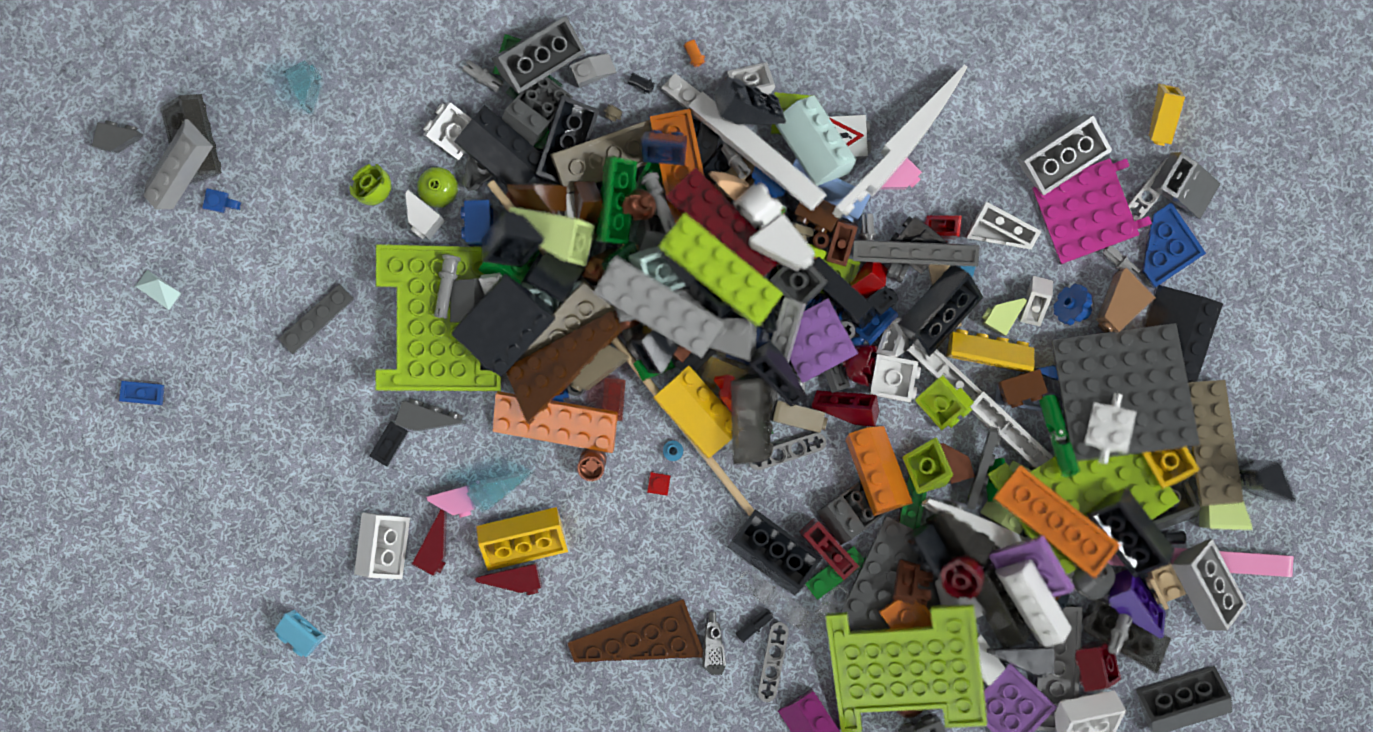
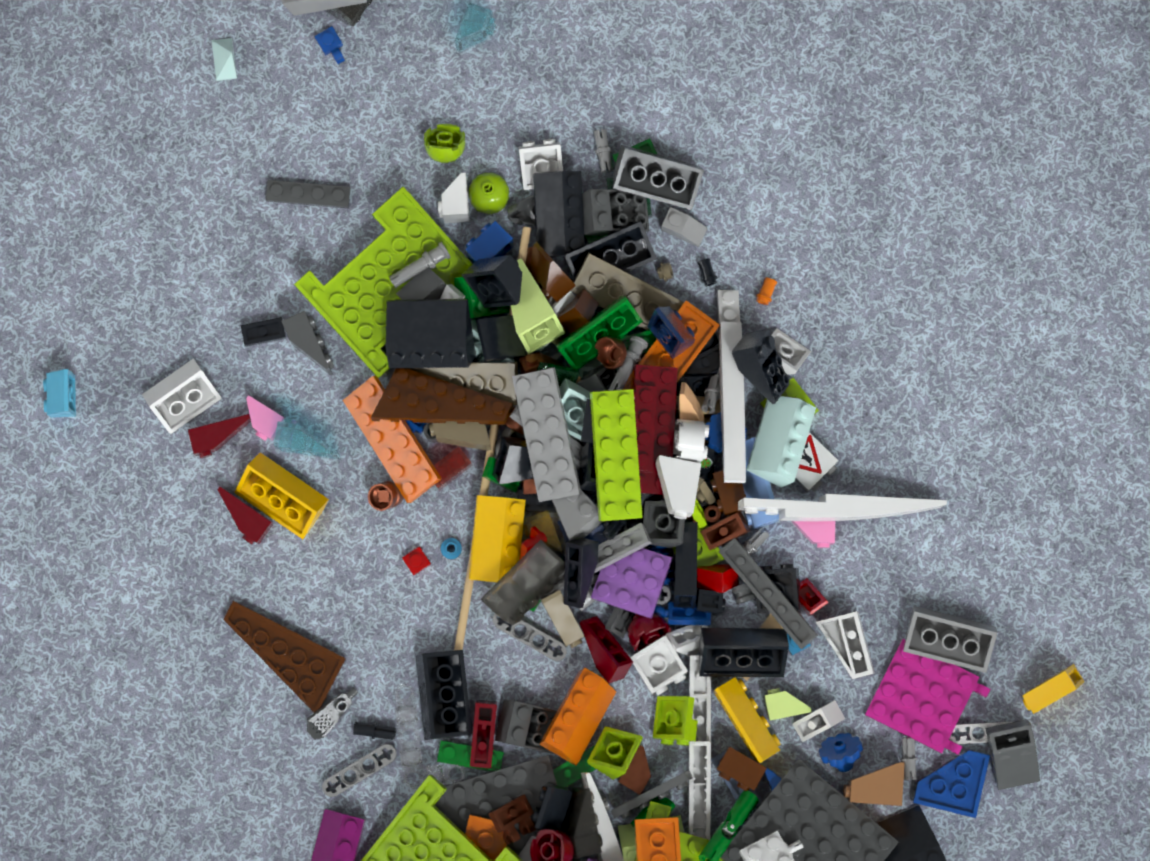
camera: 50 degrees right, 5 degrees down
(141, 393) = (136, 117): blue plate -> none

